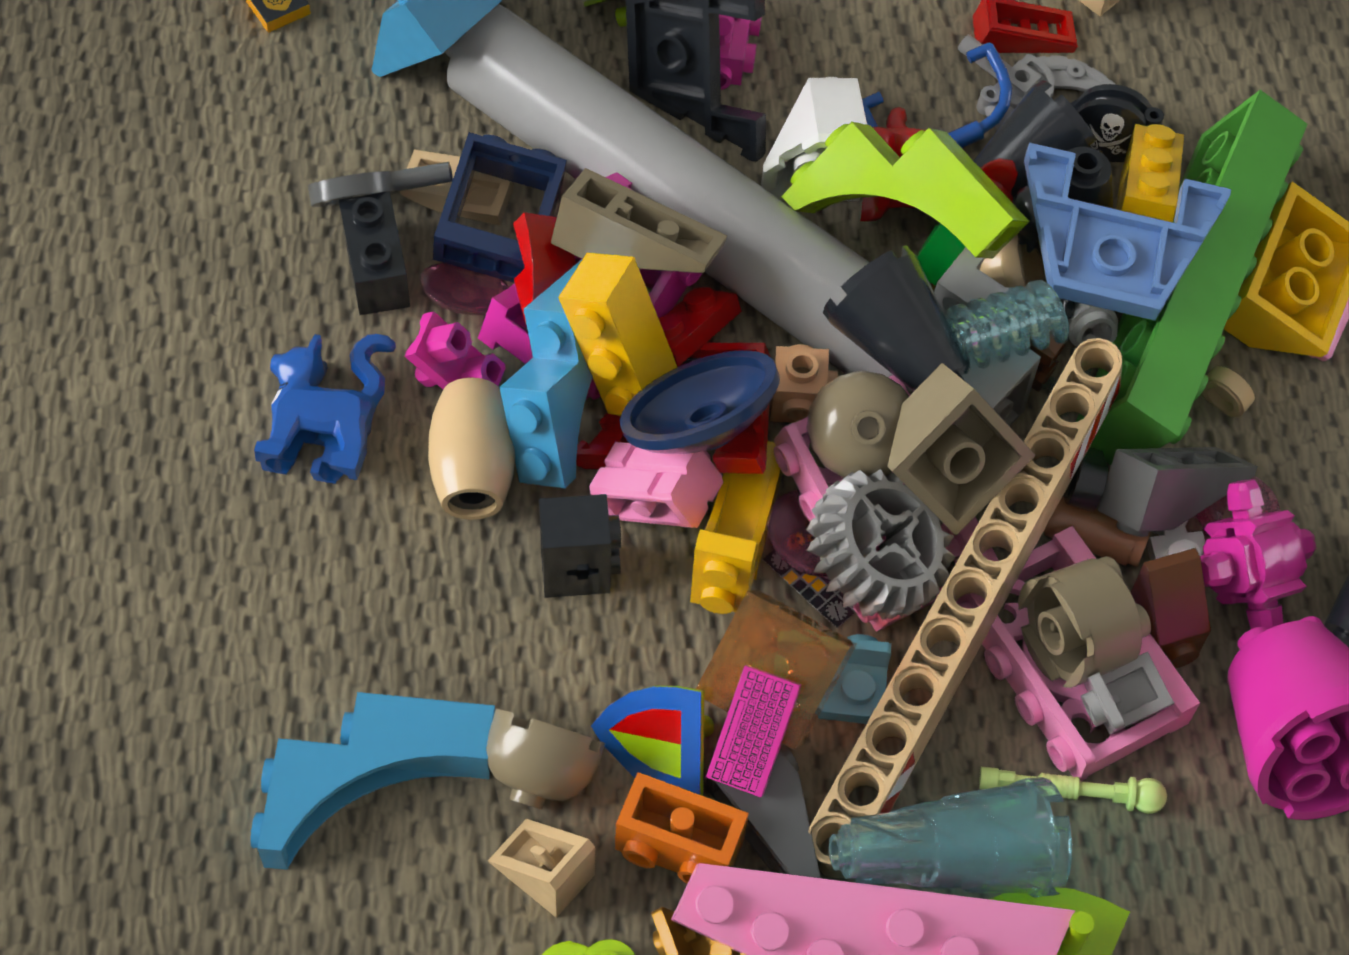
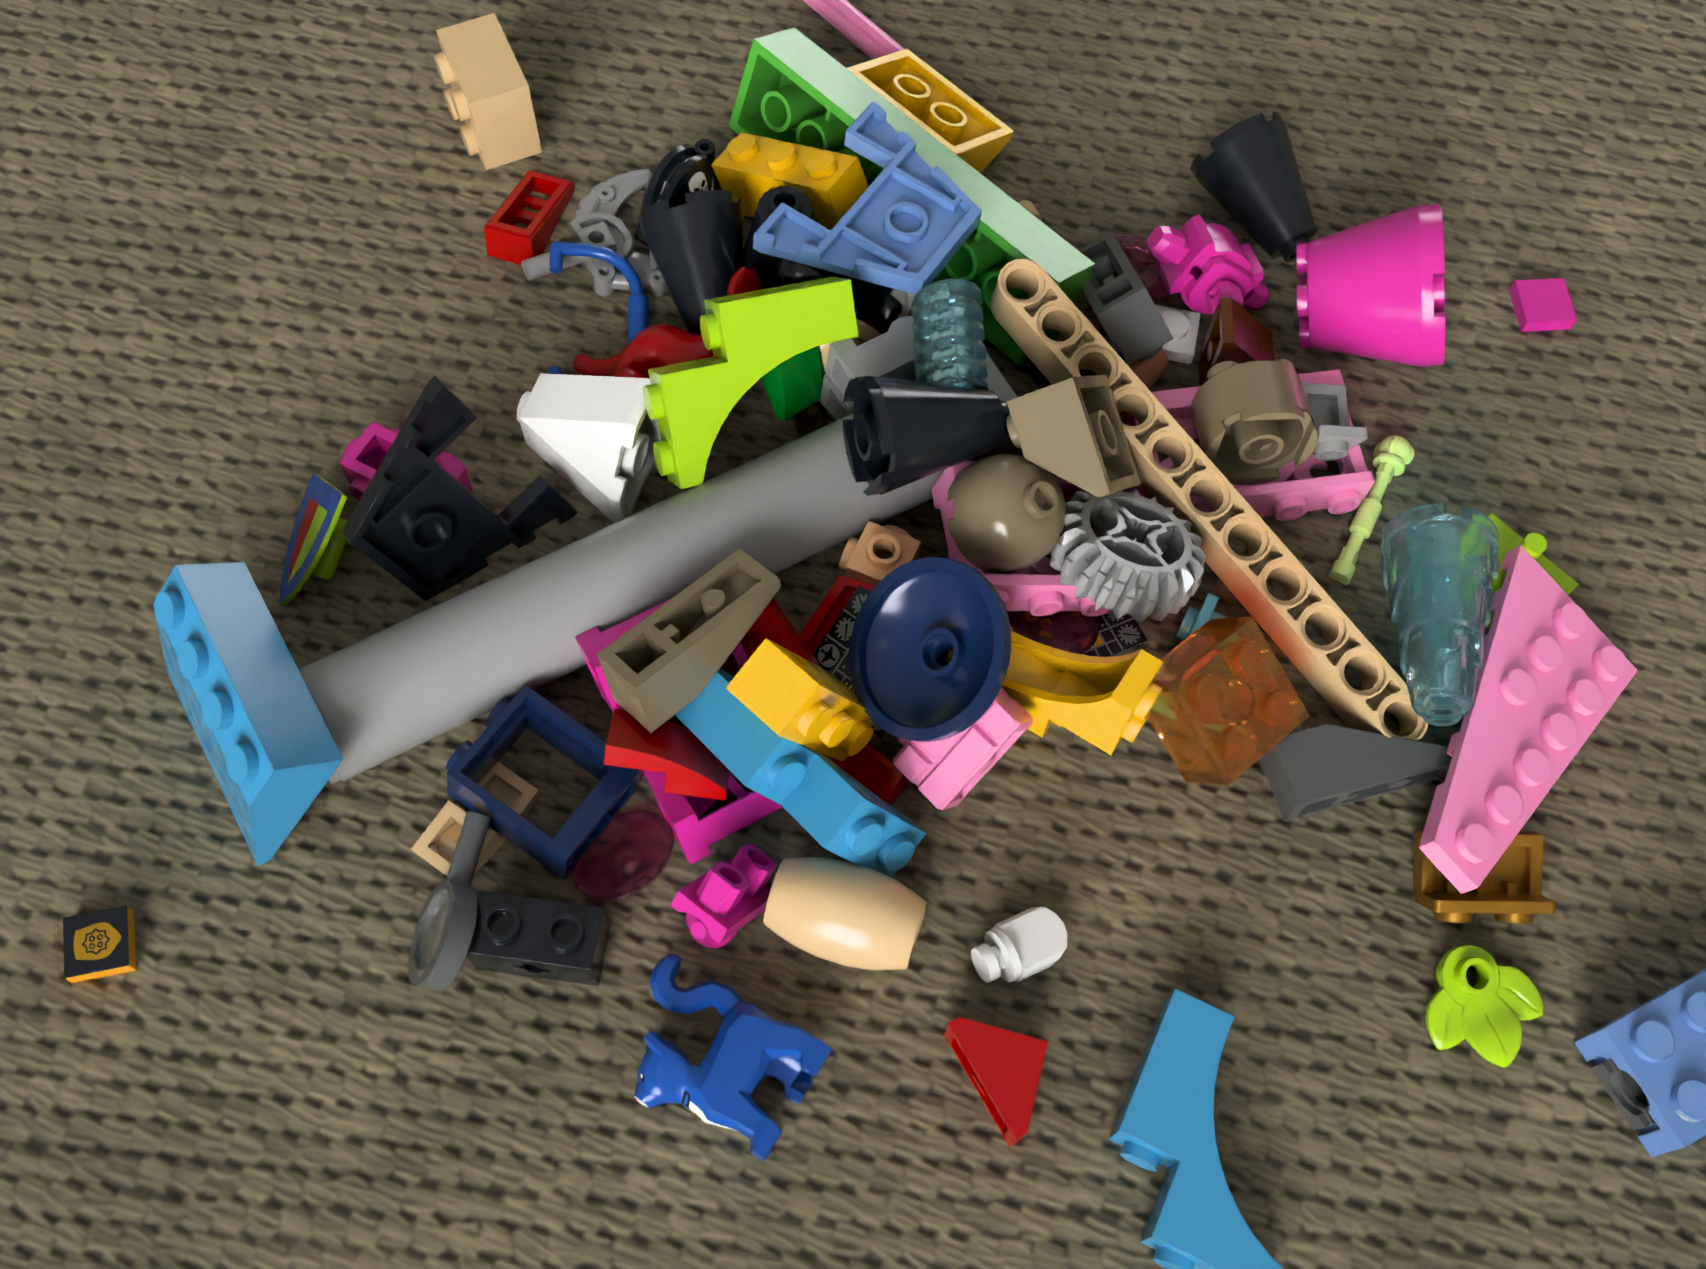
camera: 70 degrees left, 5 degrees up
(380, 607) = (1002, 1069): none -> red slope
(498, 594) = (1021, 946): none -> white arm
(540, 759) = (1242, 959): dark tan cylinder -> none
(546, 863) = (1346, 998): tan slope -> none
(578, 545) = (1014, 841): black brick -> none
(658, 734) = (1244, 840): shield -> none
(677, 828) = (1355, 855): orange brick -> none
(753, 730) = (1297, 741): dark pink tile -> none

